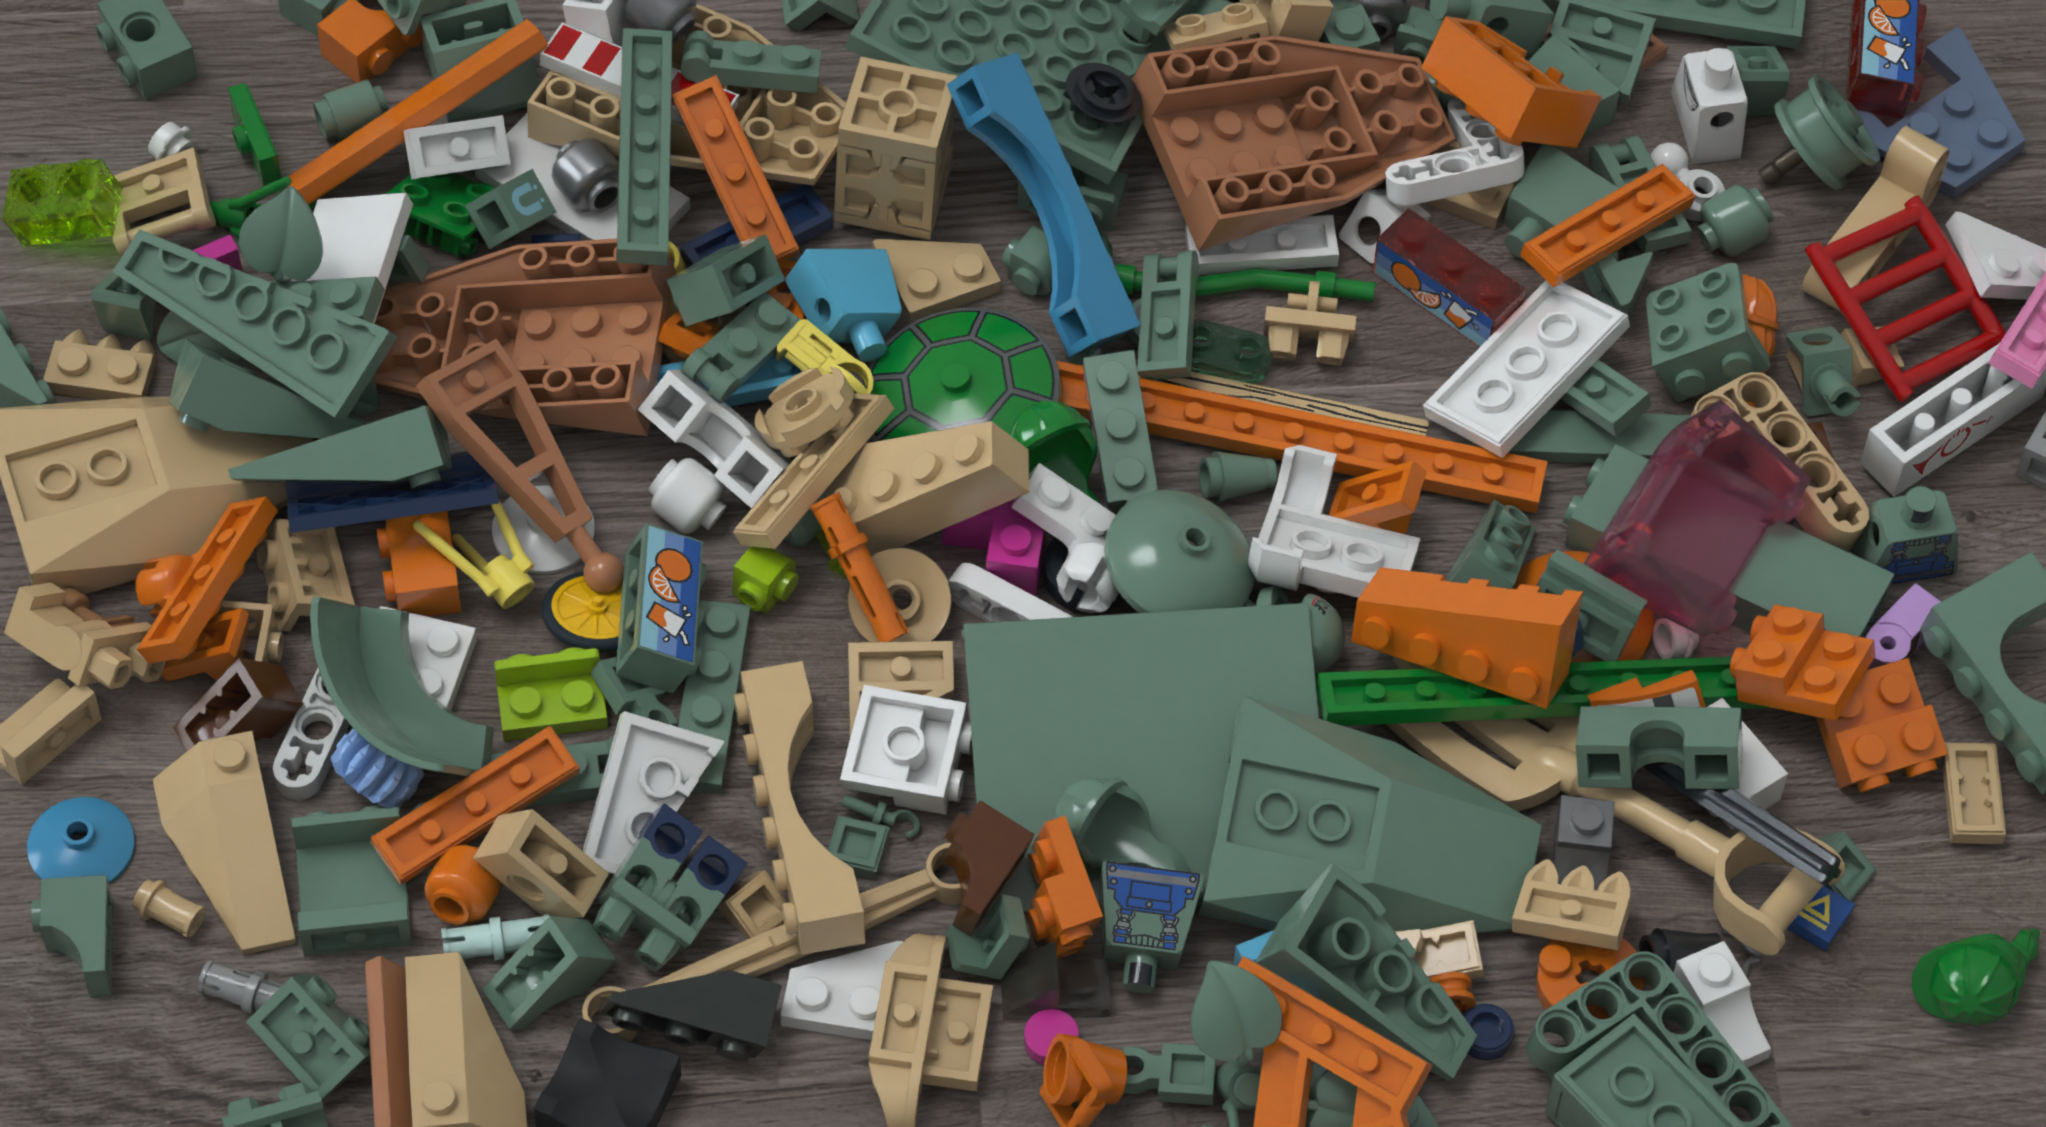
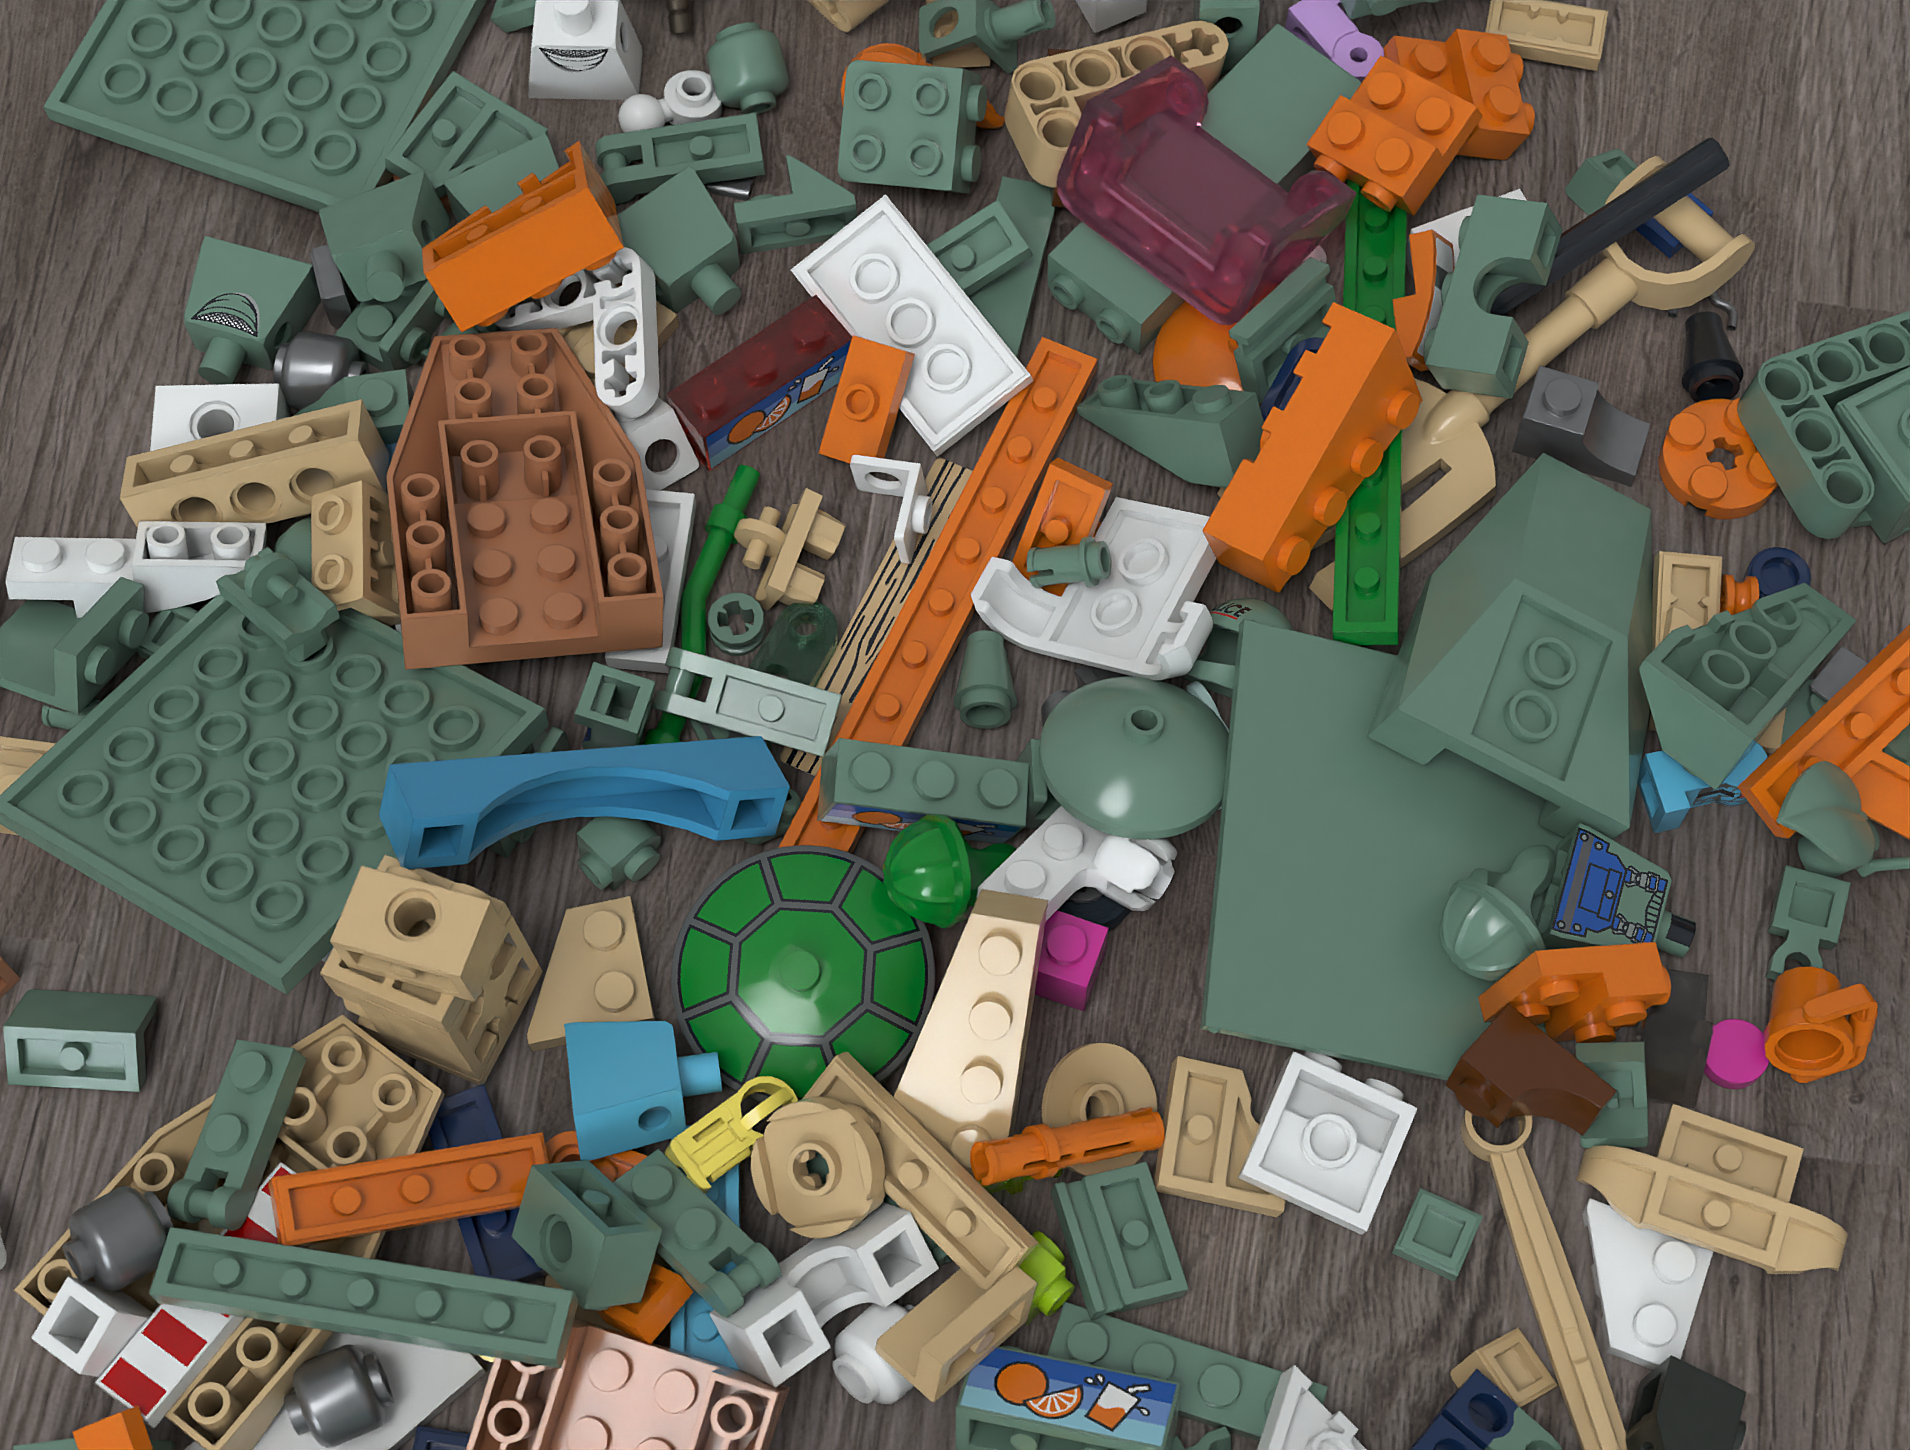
camera: 75 degrees left, 10 degrees up
(702, 519) = (955, 1329): none -> tan panel
(803, 626) = (1119, 1240): none -> sand green plate
(820, 887) = (1543, 1284): tan arch -> none
(879, 813) = (1395, 1196): sand green hand -> none
(895, 93) = (444, 959): none -> tan brick
(995, 598) = (1136, 974): white beam -> none
(1104, 82) = (443, 677): black gear -> none
(1132, 225) = (614, 707): none -> sand green leg
(1246, 296) = (750, 612): none -> sand green bush
(1344, 510) = (1070, 563): none -> sand green pin
(1366, 397) = (916, 505): none -> white bracket
(1448, 349) = (866, 400): none -> orange plate
(1573, 908) = (1663, 443): tan plate -> none
(1607, 225) = (744, 189): orange tile -> none
(1724, 996) = (1779, 323): white arch -> none
(1974, 977) = (1799, 74): green piece -> none

